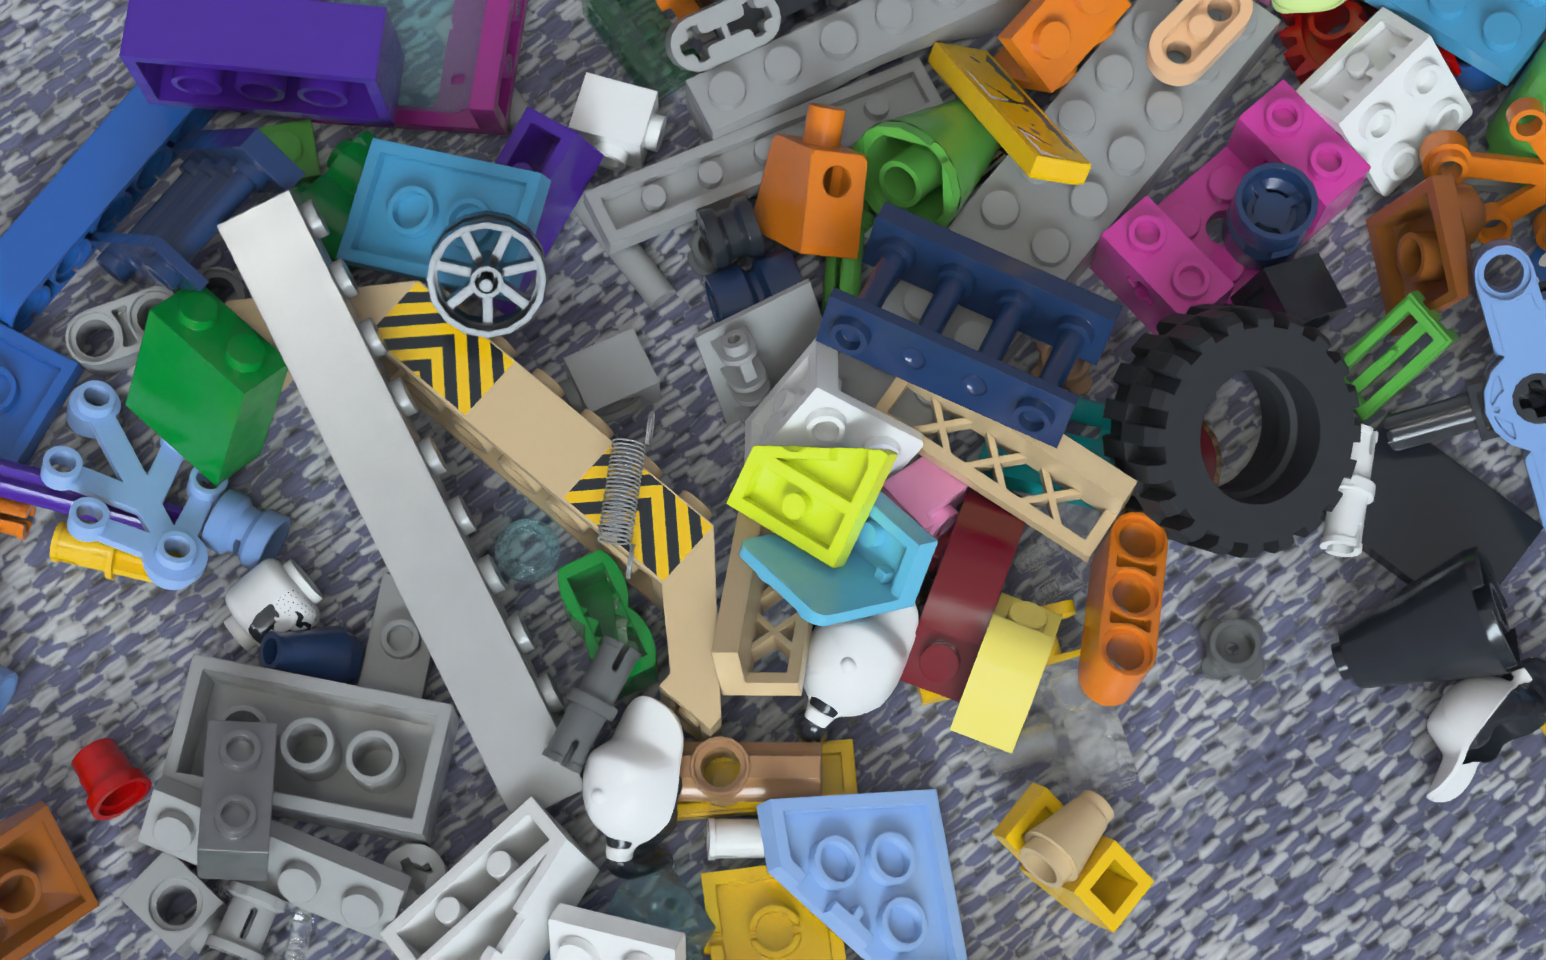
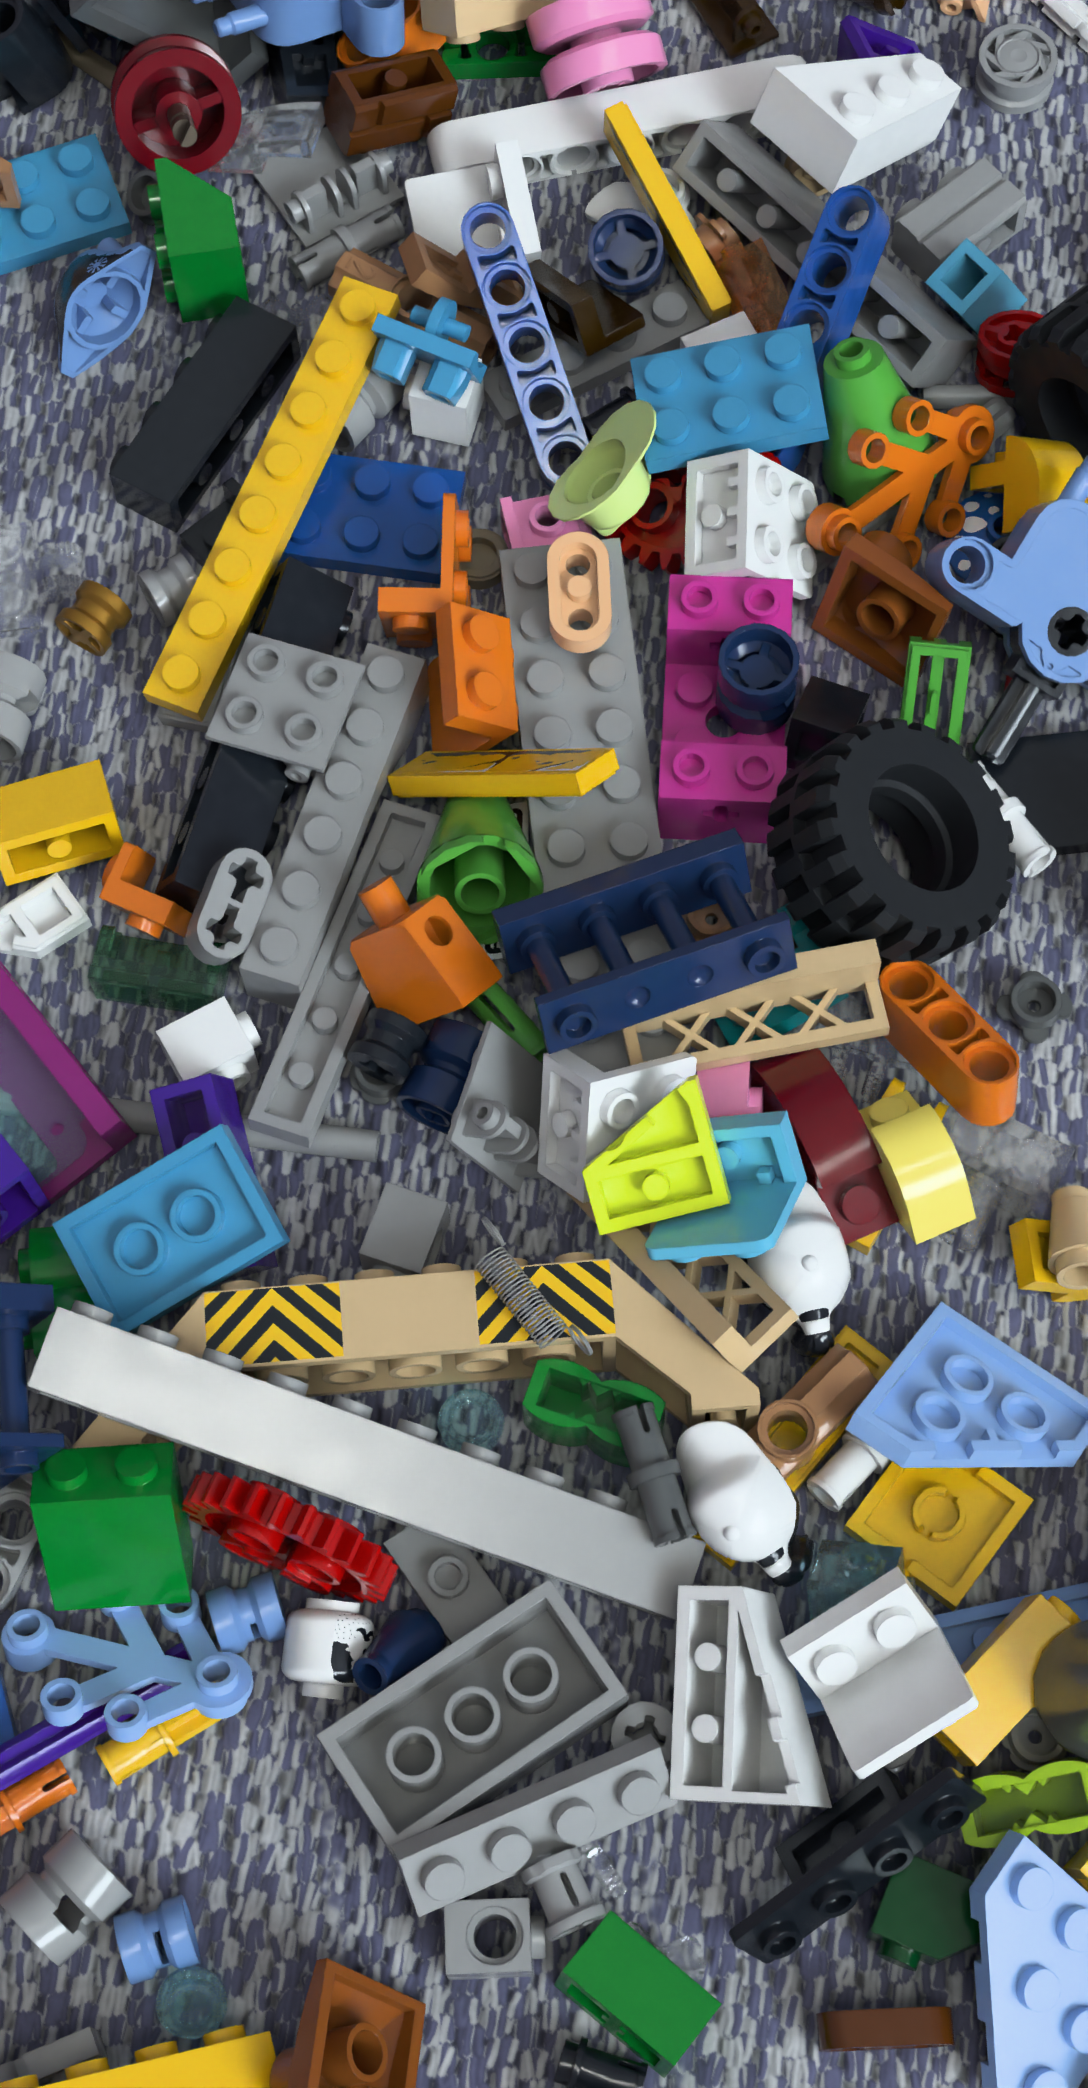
camera: 40 degrees left, 5 degrees down
(109, 779) = (337, 1900): red piece -> none
(236, 800) = (478, 1800): flat silver brick -> none
(317, 526) = (325, 1549): none -> red gear
(487, 274) = (262, 1232): wheel -> none

